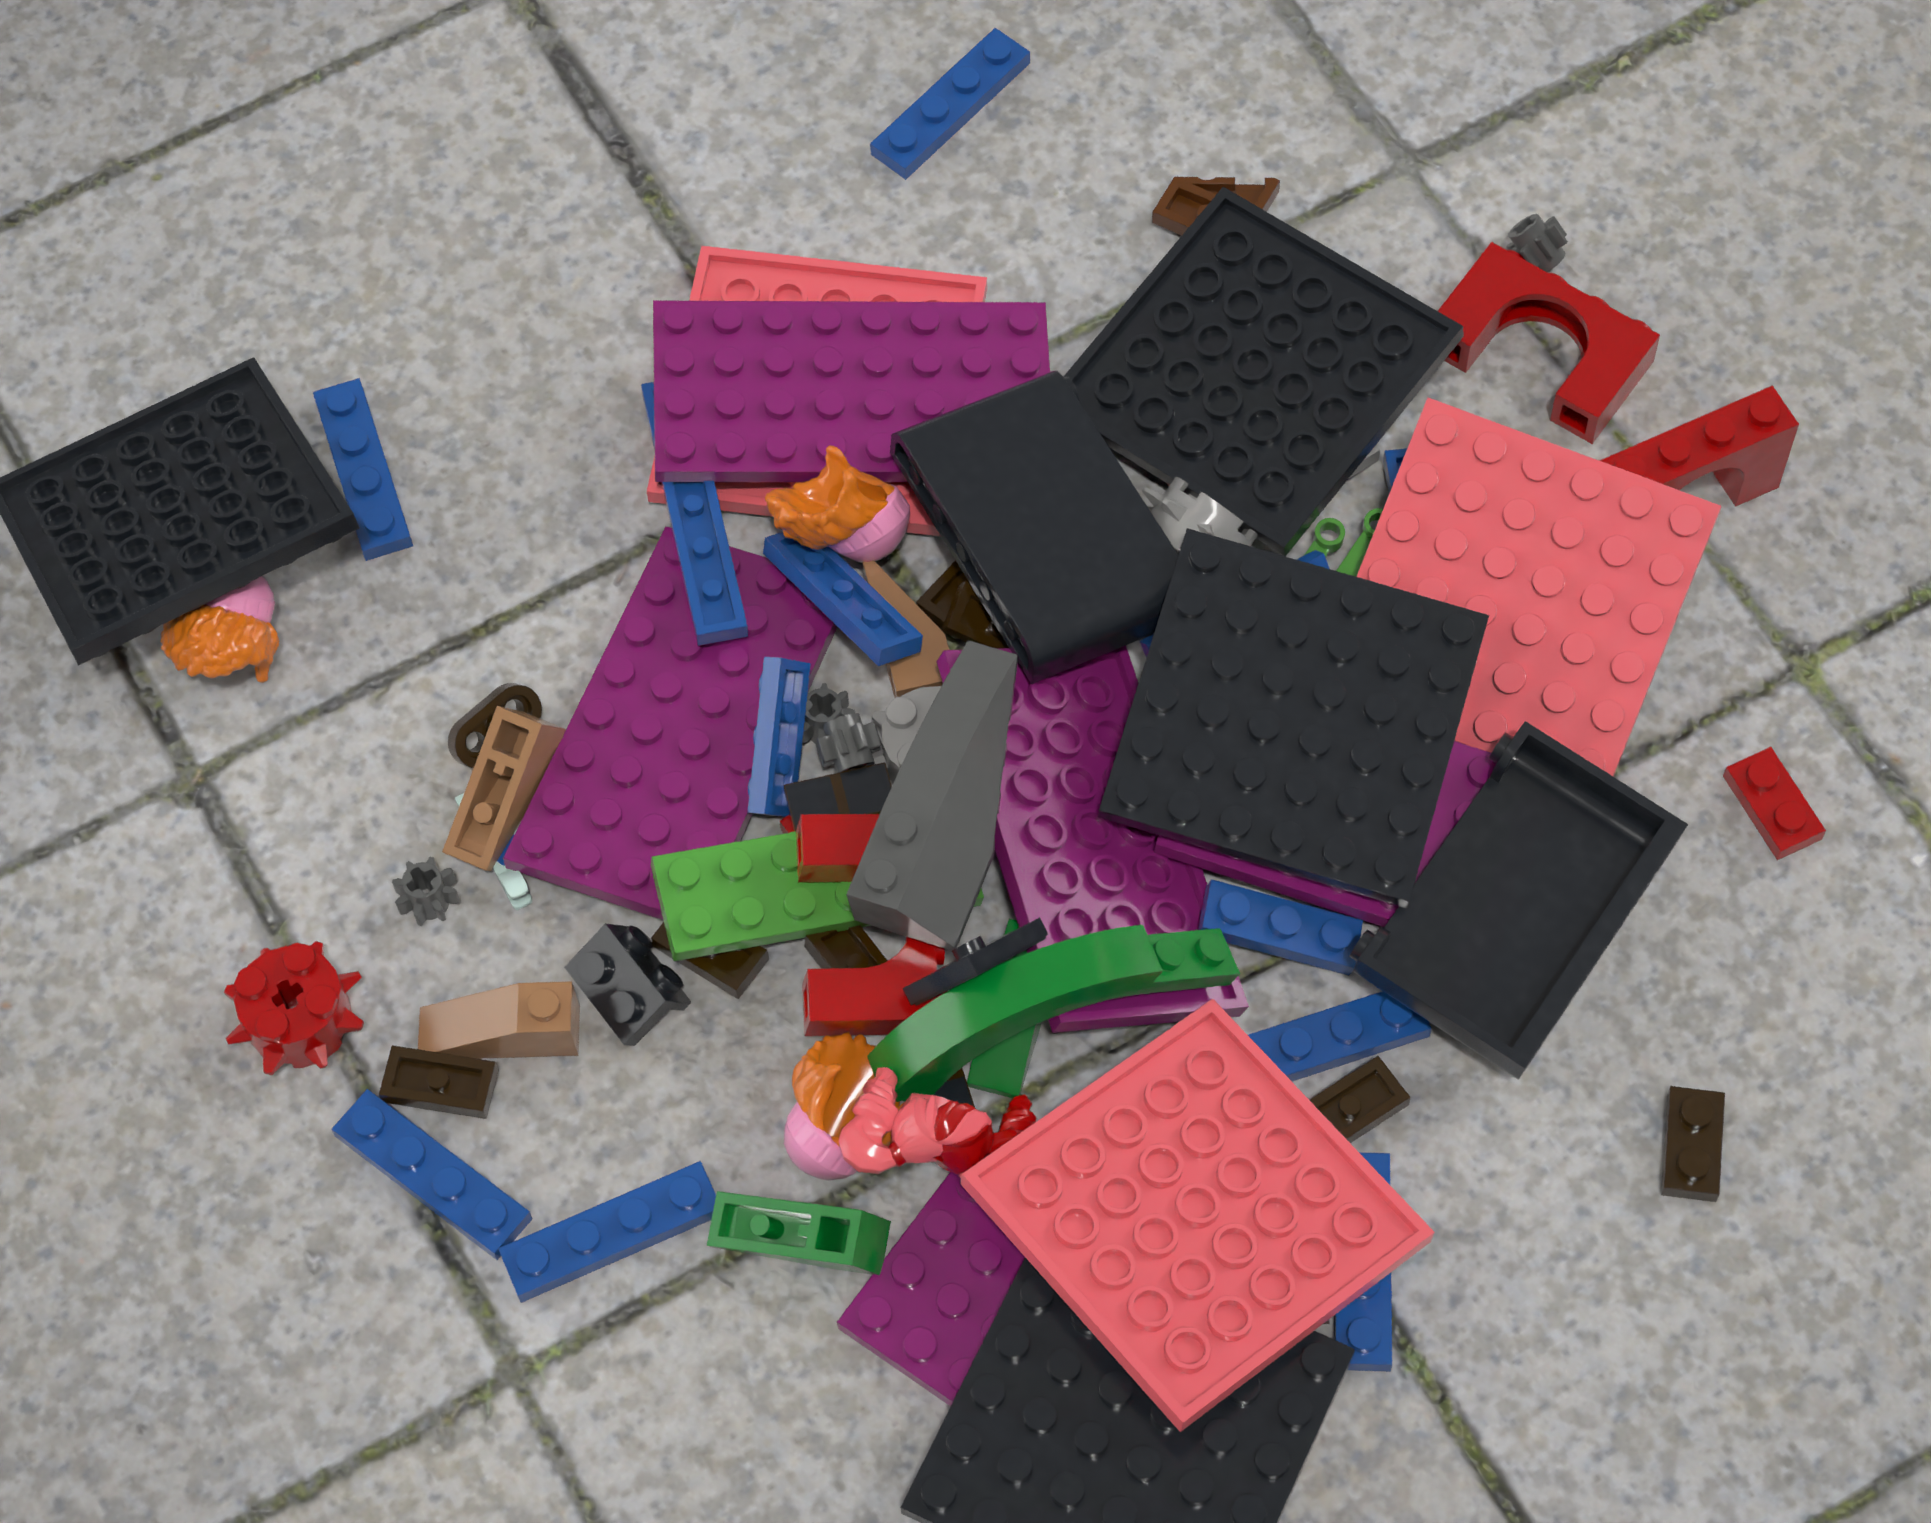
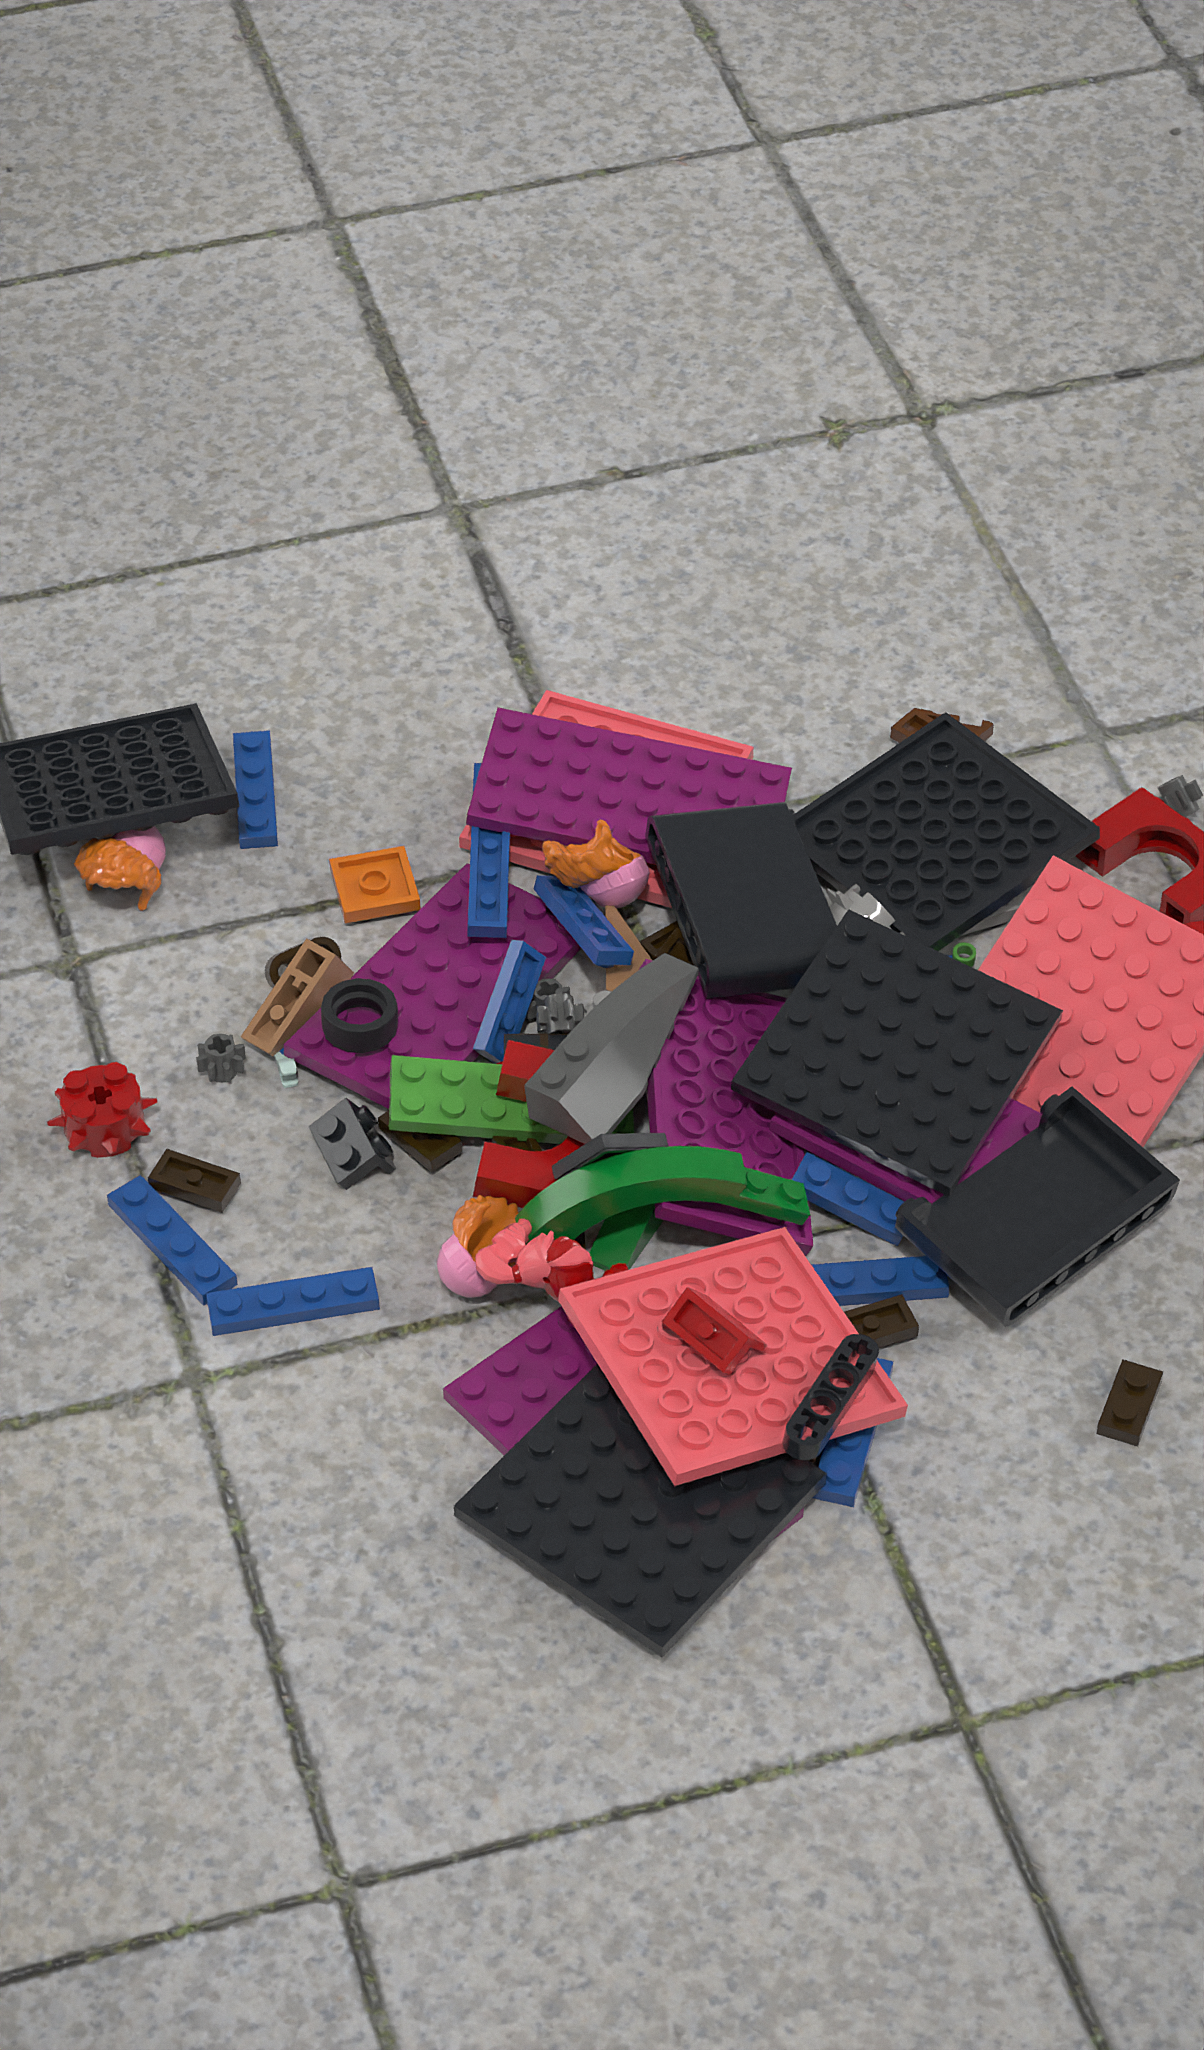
camera: 10 degrees right, 15 degrees down
(505, 1022) = (259, 1151): medium nougat slope -> none
(555, 584) = (374, 884): none -> orange plate
(587, 767) = (359, 1037): none -> black tyre
(799, 1232) = (435, 1323): green slope -> none
(950, 103) = (760, 636): blue plate -> none
(1172, 1193) = (711, 1330): none -> red panel
(1341, 1251) = (834, 1397): none -> black beam

